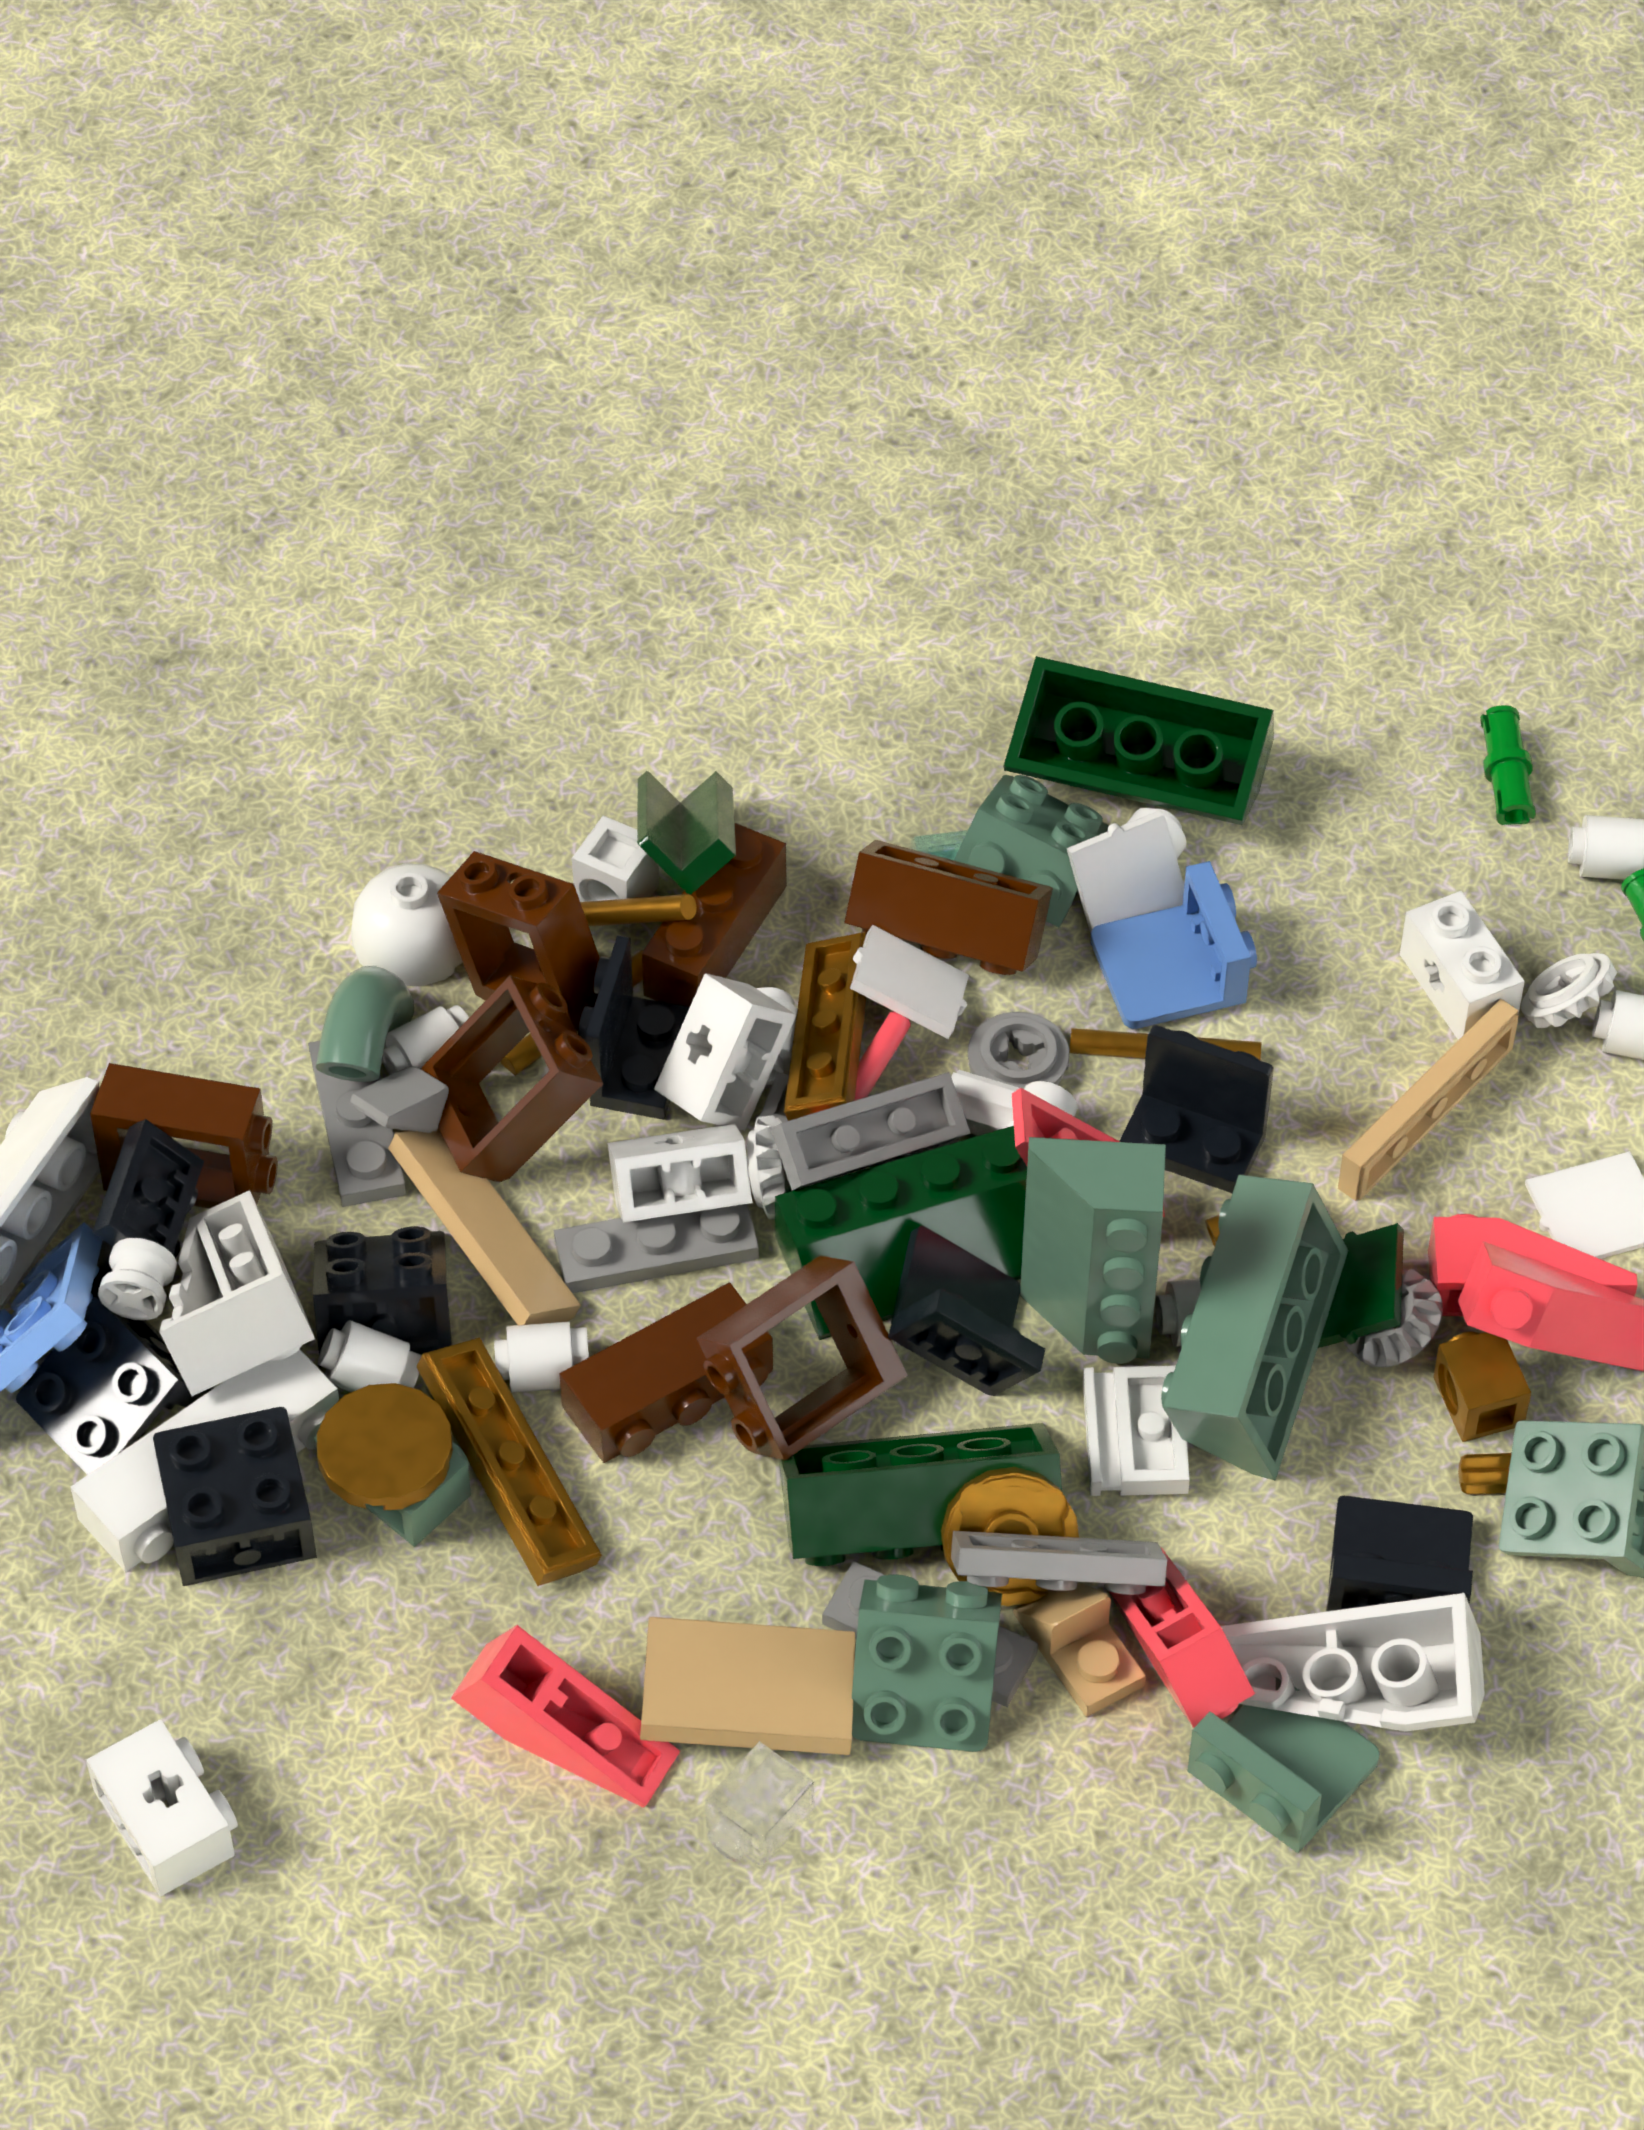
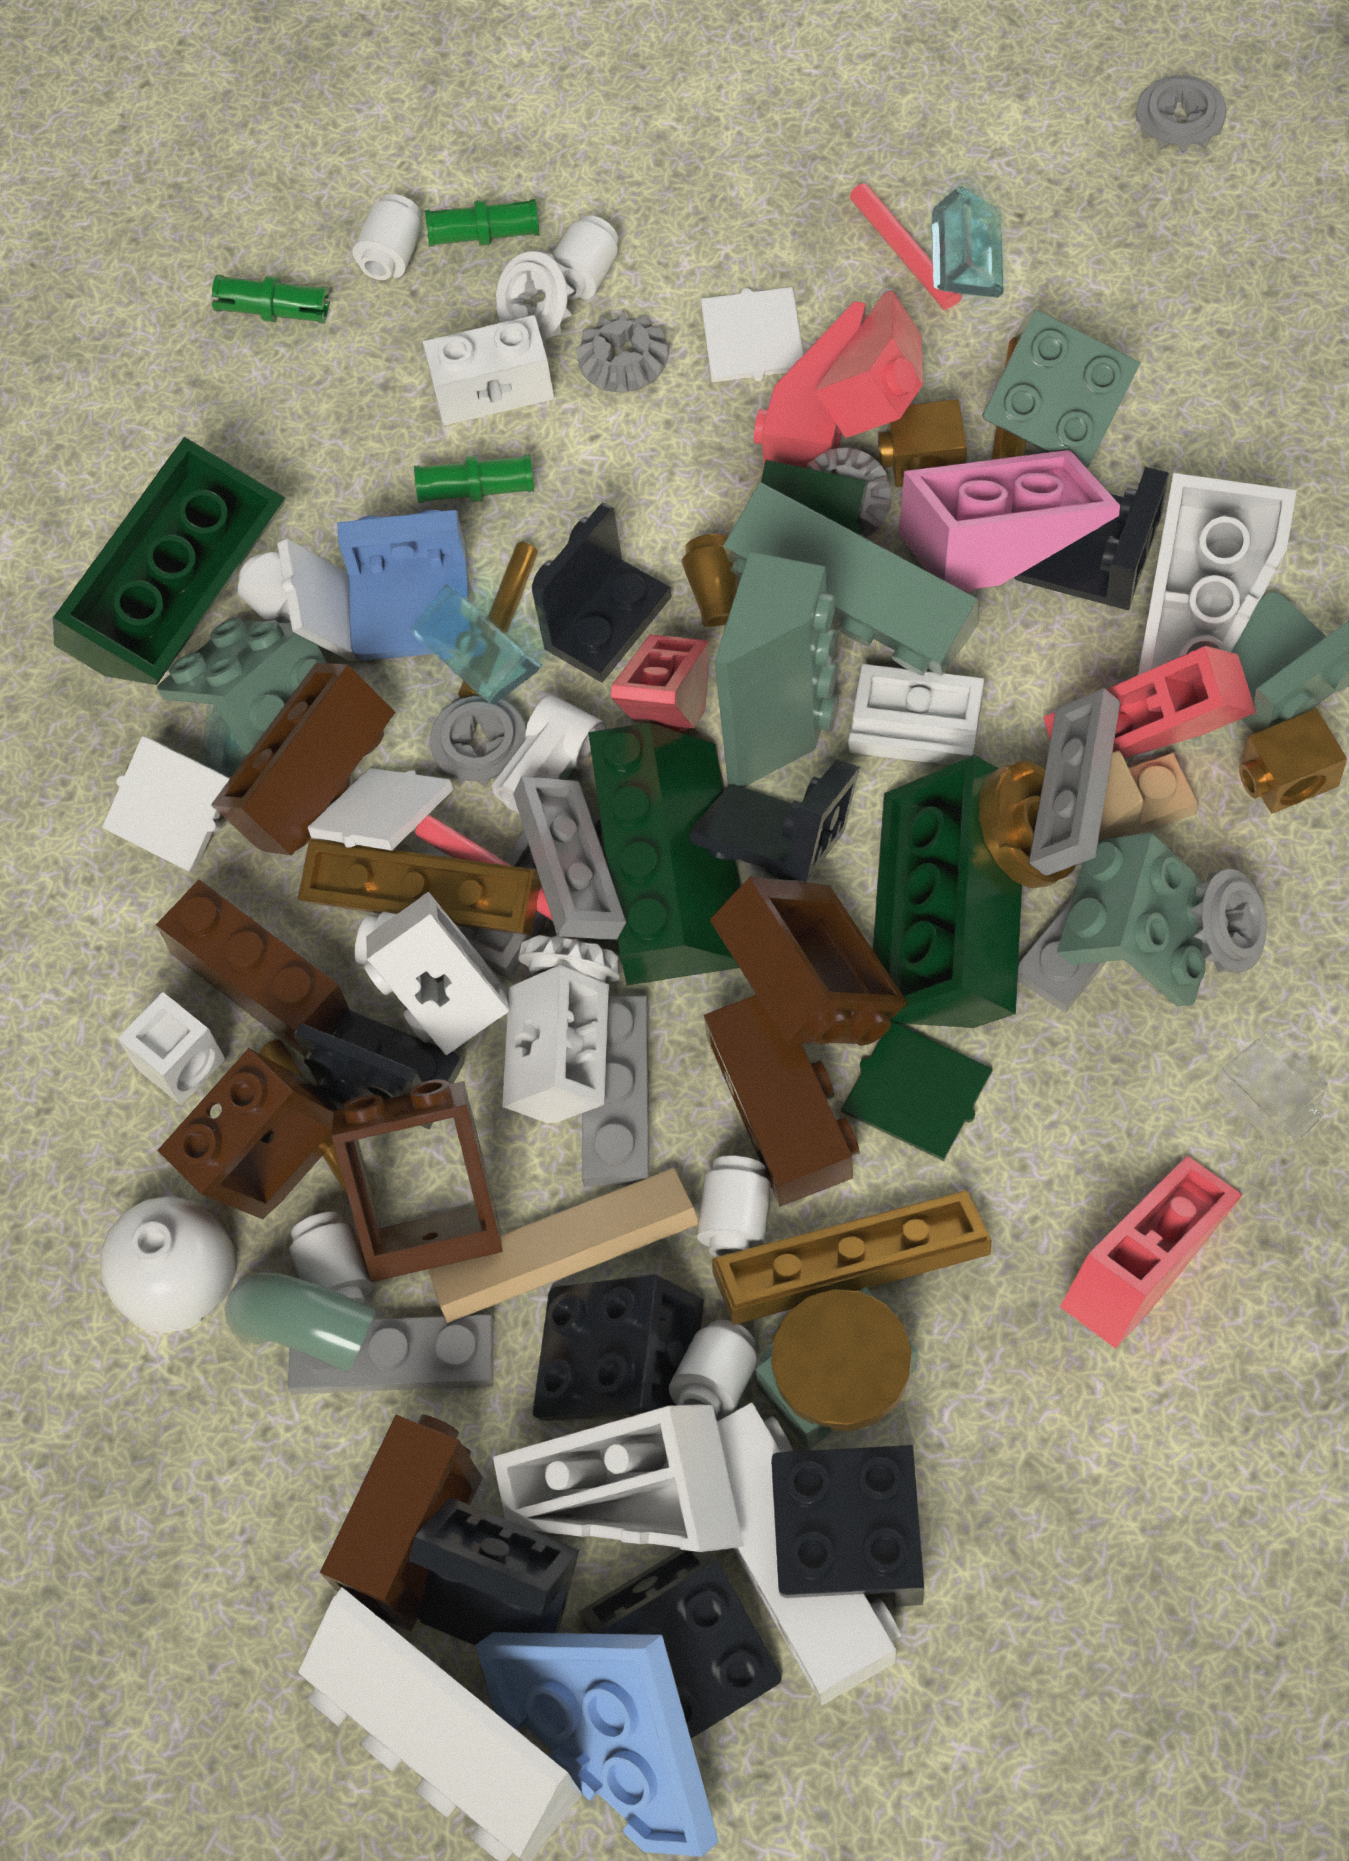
camera: 70 degrees left, 10 degrees up
(137, 1279) = (594, 1581): white wheel -> none
(172, 1841) = (1175, 1681): white brick -> none
(404, 1100) = (406, 1291): light grey slope -> none
(639, 910) = (237, 1031): pearl gold bar -> none
(687, 836) = (157, 959): dark green panel -> none
(707, 1503) = (917, 1091): none -> dark green piece
(748, 1685) = (1138, 1080): tan tile -> none
(884, 809) = (166, 804): none -> white piece
(958, 1768) = (1239, 936): none -> light grey gear
(1114, 1025) = (474, 645): none -> clear light blue slope
(1156, 1786) = (1292, 761): none -> pearl gold brick
(1329, 987) = (473, 478): none -> green pin
(1389, 1453) = (999, 515): none -> bright pink slope
(1428, 1100) = (622, 425): tan tile -> none
(1556, 1107) = (628, 370): none -> light grey gear

